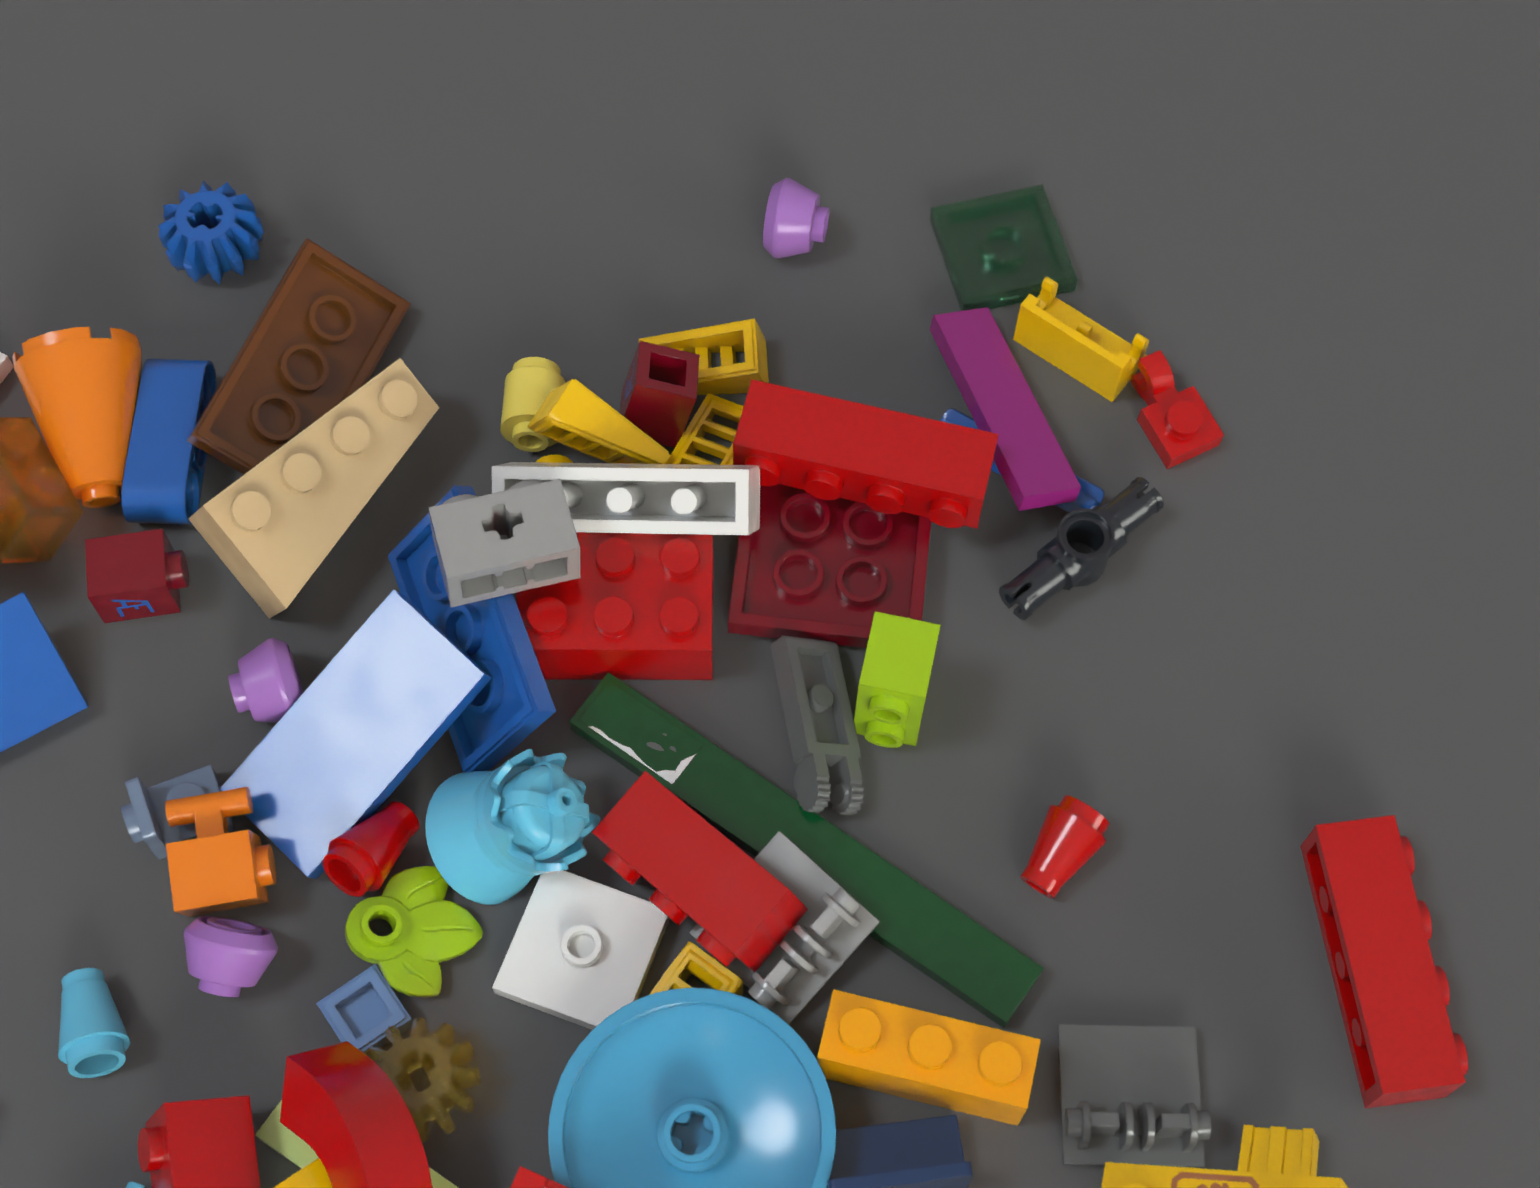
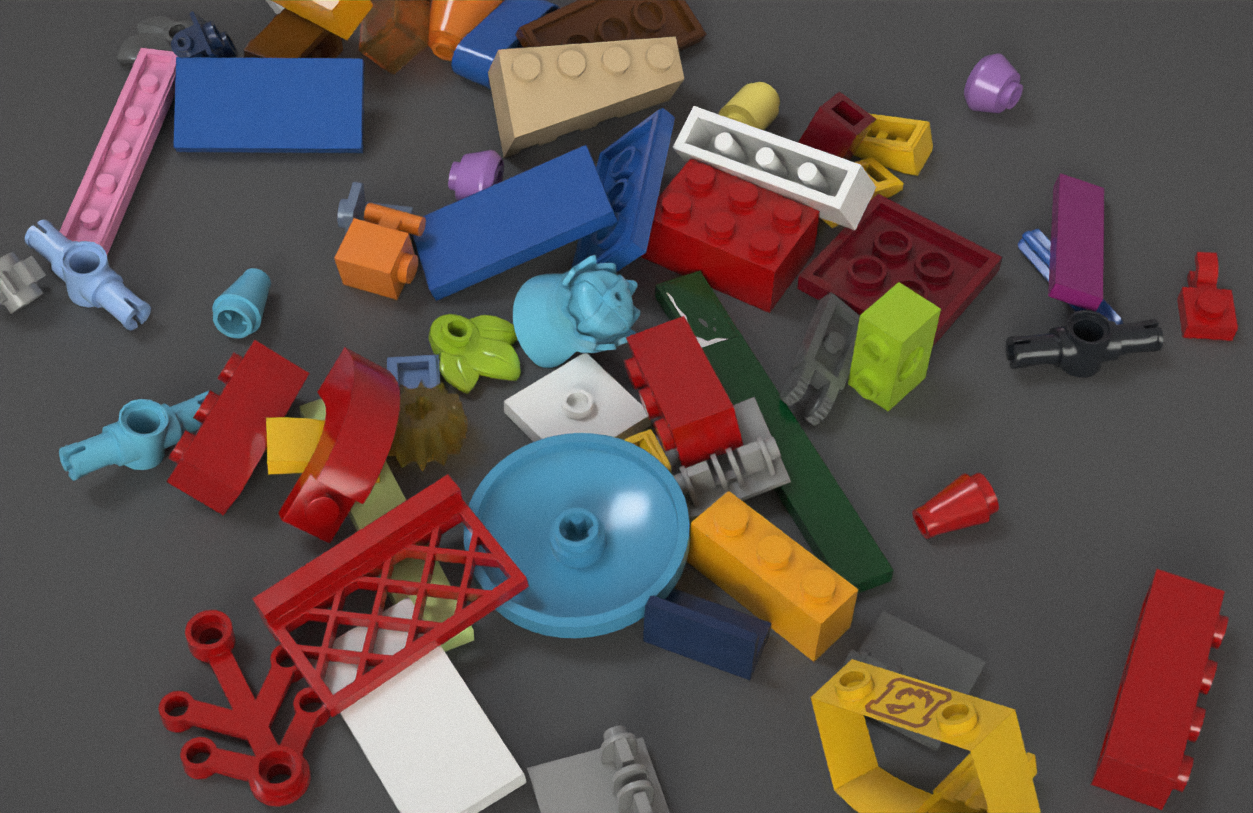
camera: 30 degrees right, 15 degrees down
(134, 575) = (436, 94): dark red brick -> none
(227, 954) = (351, 302): medium lavender cone -> none
(366, 853) = (476, 290): red cone -> none
(538, 550) = (672, 139): light grey brick -> none
(593, 427) = (772, 113): yellow slope -> none
(865, 454) = (959, 217): red brick -> none
(1002, 248) = (1139, 165): clear green tile -> none
(1077, 343) = (1156, 232): yellow hinge -> none

